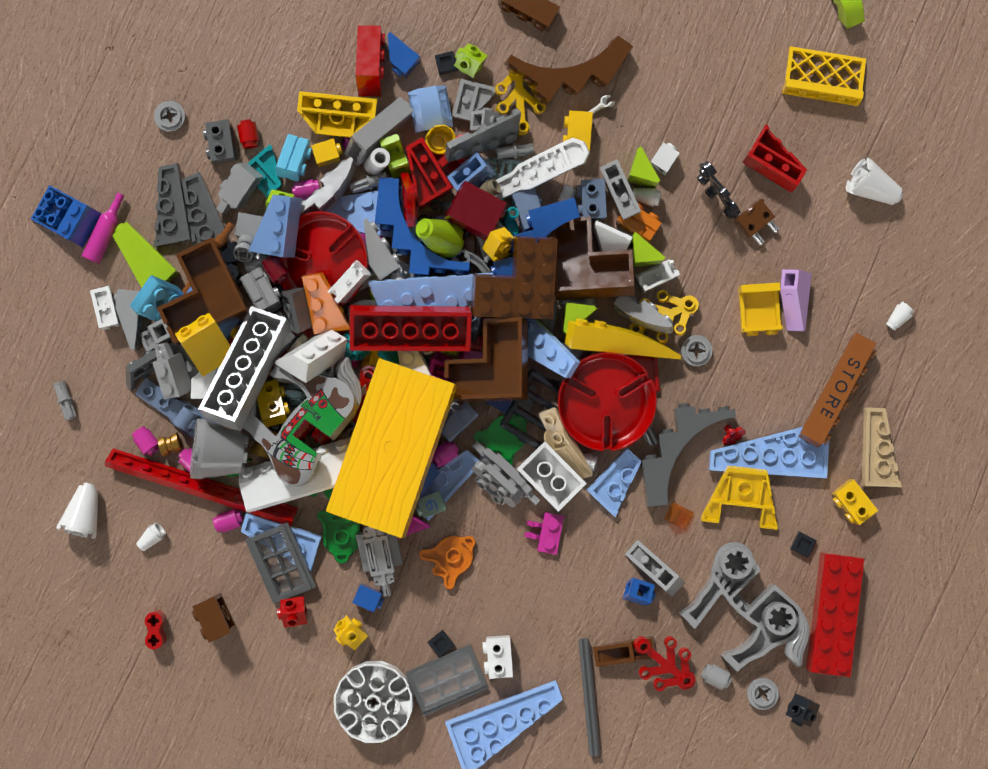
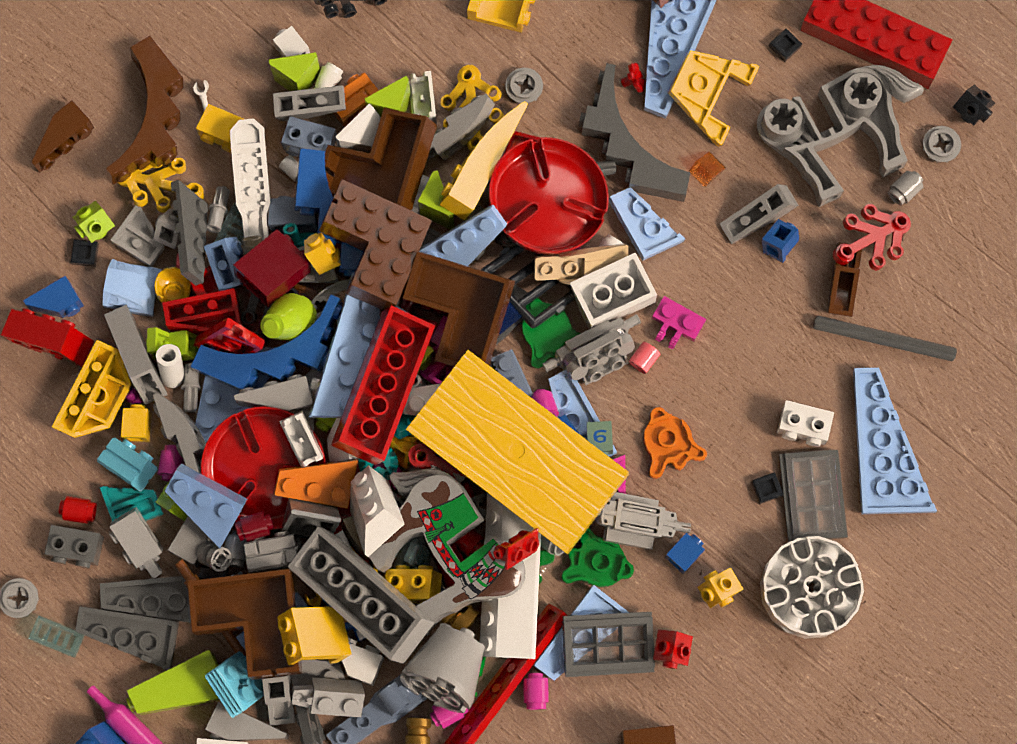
camera: 70 degrees left, 10 degrees down
(144, 138) = (60, 628): none -> clear light blue slope
(318, 475) = (517, 548): none -> red hinge
(509, 517) = (644, 357): none -> coral beam

